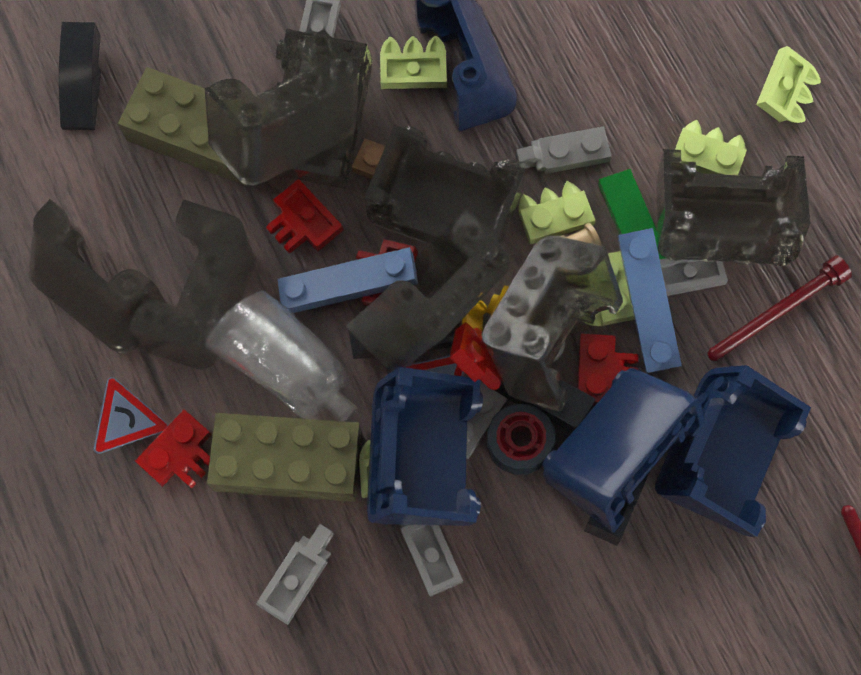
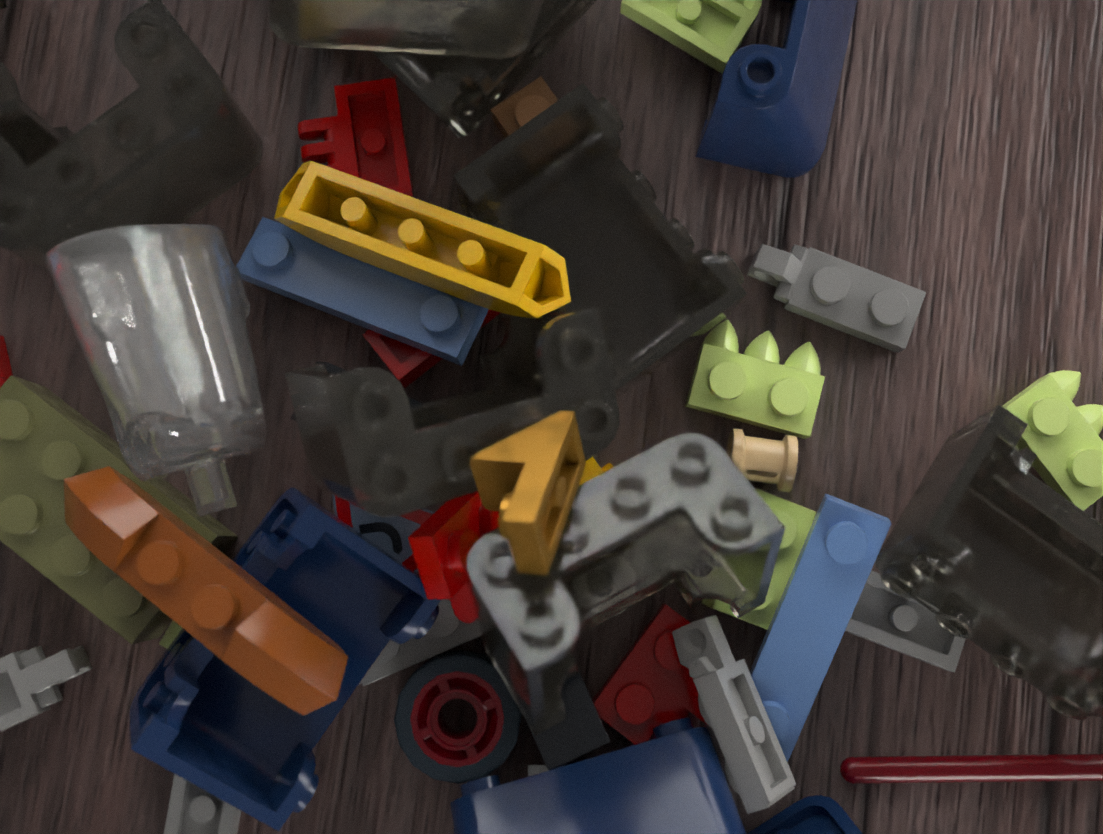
camera: 25 degrees right, 10 degrees up
(364, 238) = (424, 242): none -> yellow brick
(373, 437) = (204, 590): none -> dark orange brick
(489, 292) = (532, 486): none -> pearl gold slope
(626, 204) = (876, 445): green tile -> none
(640, 352) = (736, 714): none -> light grey hinge

